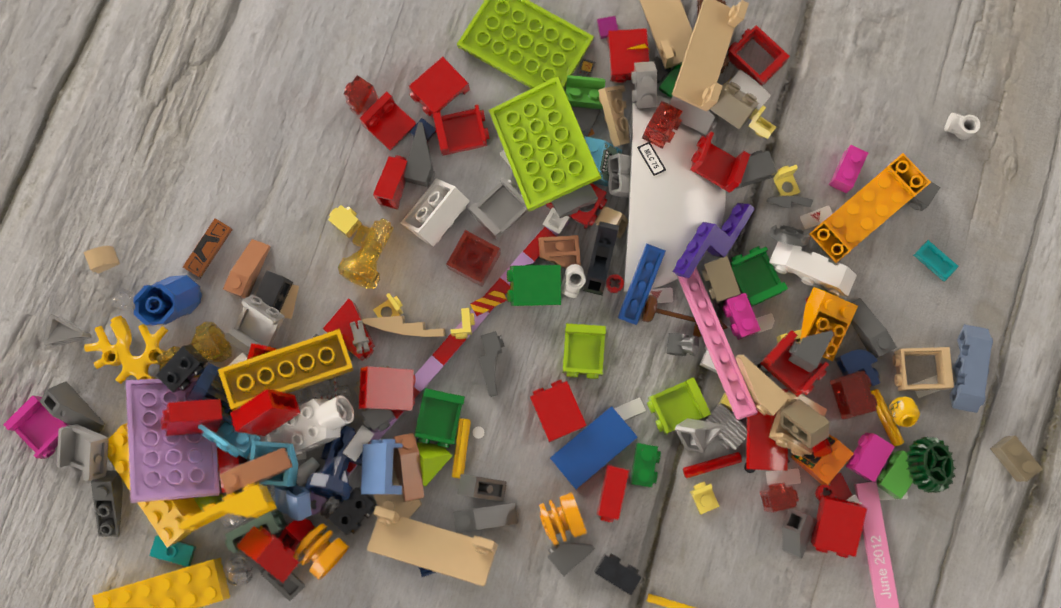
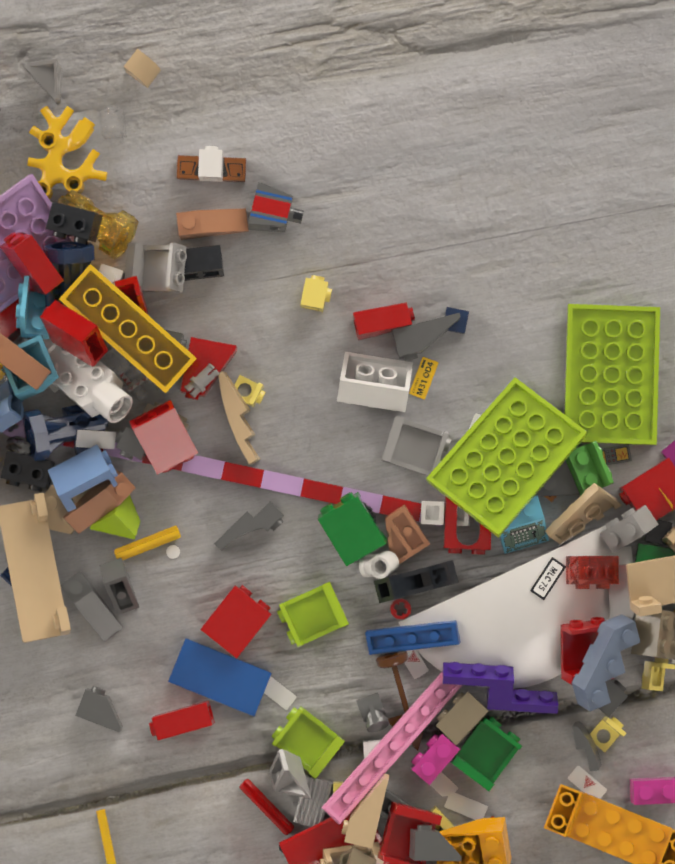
camera: 55 degrees right, 5 degrees up
(167, 300) = (134, 164): blue brick -> none
(203, 244) = (210, 164): none -> white brick
(264, 218) = (272, 210): none -> torso
(288, 306) = (195, 286): tan sticker -> none
(306, 469) = (42, 401): white cone -> none
(360, 95) = (453, 236): clear red brick -> none
(362, 266) = (276, 340): clear yellow piece -> none
(387, 121) = (444, 279): red bracket -> none
(438, 87) = (509, 310): red panel -> none
(438, 417) = (165, 504): green panel -> none
(452, 176) = (423, 378): none -> yellow sticker
(461, 130) = (477, 360): red panel -> none
(467, 320) = (279, 479): light yellow bracket -> none
(473, 258) = (346, 449): clear red brick -> none
(488, 302) = (310, 489): sticker -> none
(562, 519) = (130, 684): light orange wheel -> none
(573, 201) = (461, 522): dark grey slope -> none
(613, 217) = (466, 571): tan brick -> none
(617, 574) = (106, 768): black brick -> none
(619, 170) = (517, 553): light grey brick -> none
(644, 465) = (228, 737): green brick -> none
(704, 497) = (229, 815): light yellow bracket -> none
(736, 150) = (604, 661): none -> sand blue brick
(788, 314) = (465, 806): none -> white sticker
(790, 235) = (547, 765): dark grey tile -> none
(813, 268) = (525, 807): white brick -> none

